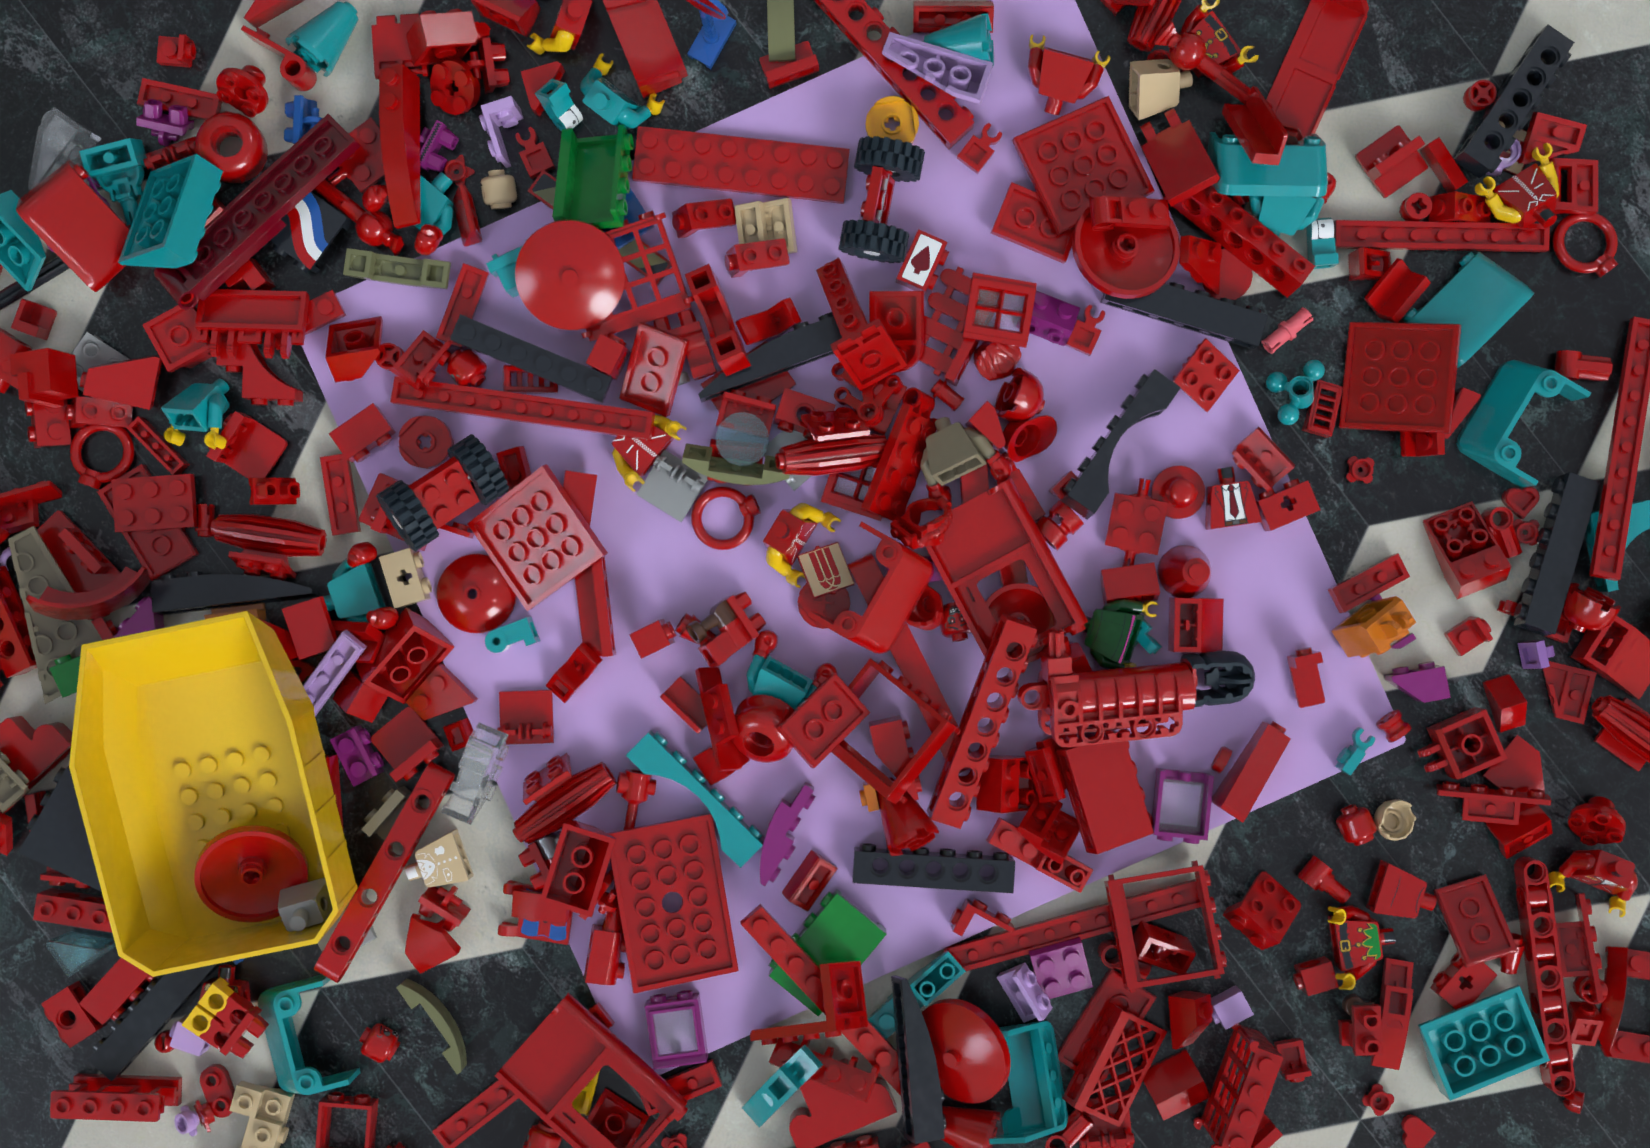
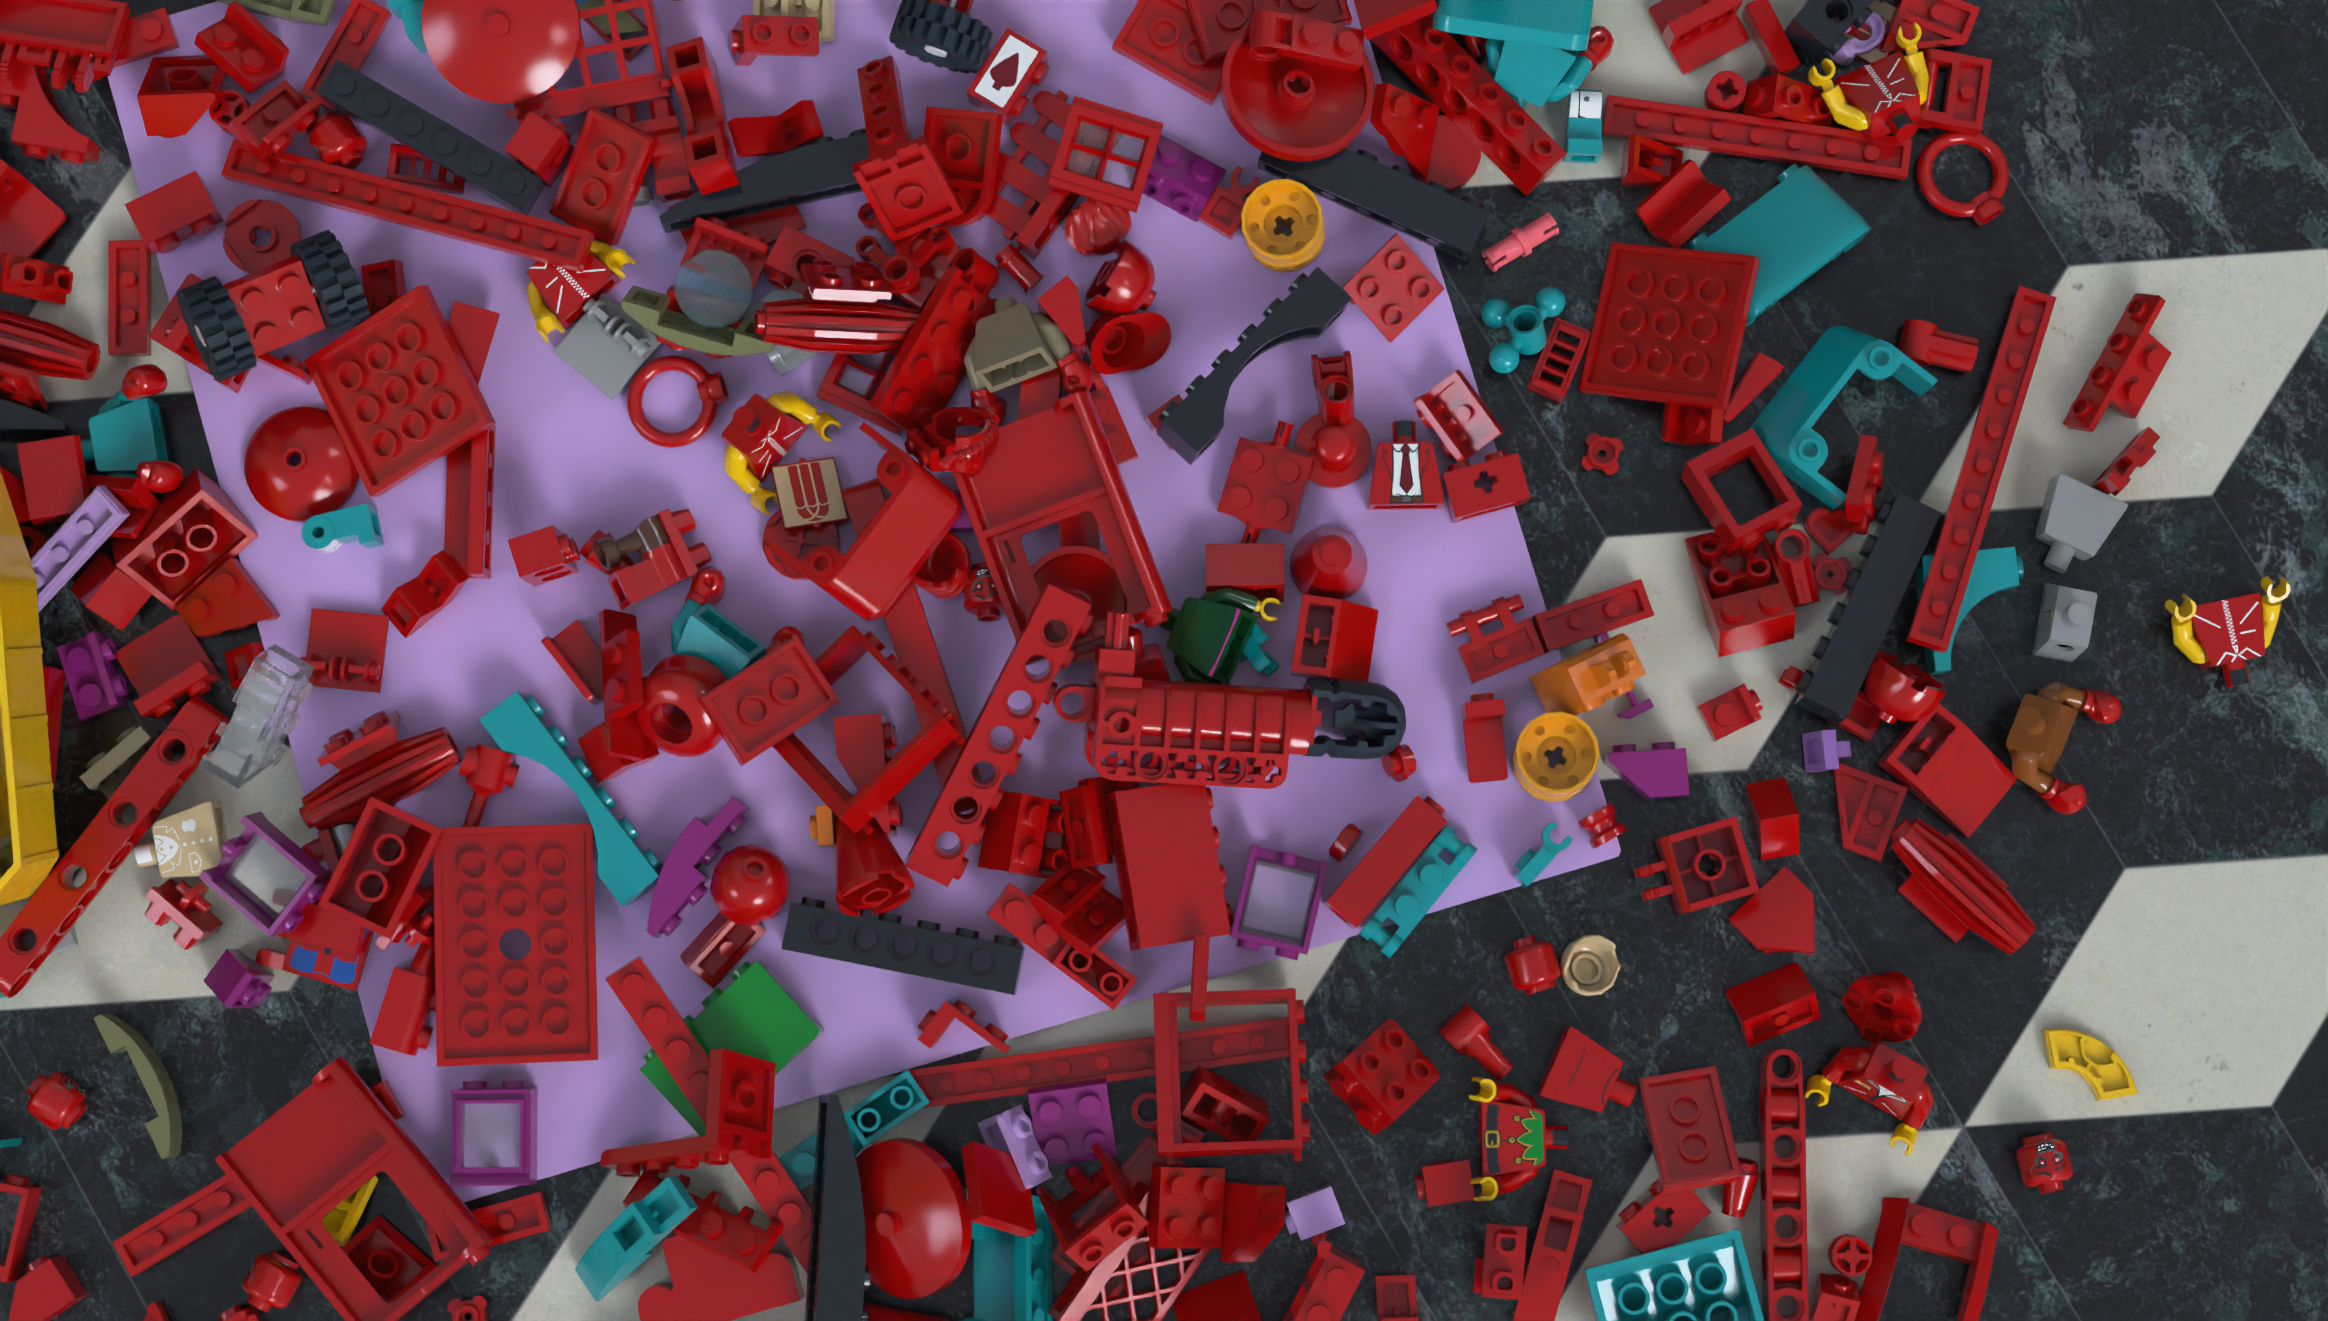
camera: 10 degrees right, 5 degrees down
(391, 312) = (244, 48): none -> red bracket
(397, 566) = (189, 412): tan brick -> none
(428, 943) = (151, 962): red slope -> none
(488, 949) = (239, 980): none -> magenta slope
(498, 881) = (267, 876): none -> window
(824, 841) = (750, 884): none -> red cylinder
(1022, 1028) = (997, 1191): none -> red tile
(1059, 514) = (1152, 472): red wheel -> none
(1096, 1052) = (1107, 1232): none -> red window
(1127, 327) = (1286, 204): none -> light orange wheel
(1139, 868) = (1199, 978): none -> red tile
(1147, 1018) = (1186, 1207): none -> red plate
(1175, 445) = (1334, 387): none -> red piece
(1252, 702) = (1399, 763): none -> red plate
(1277, 785) = (1418, 891): none -> teal plate
(1310, 614) = (1501, 649): none -> red plate
(1370, 675) = (1564, 735): none -> light orange wheel
(1445, 500) = (1715, 461): none -> red window
(1492, 805) = (1733, 962): red bracket -> none
(1546, 464) = (1864, 484): none -> red plate
(1578, 951) = (1832, 1192): red bracket -> none

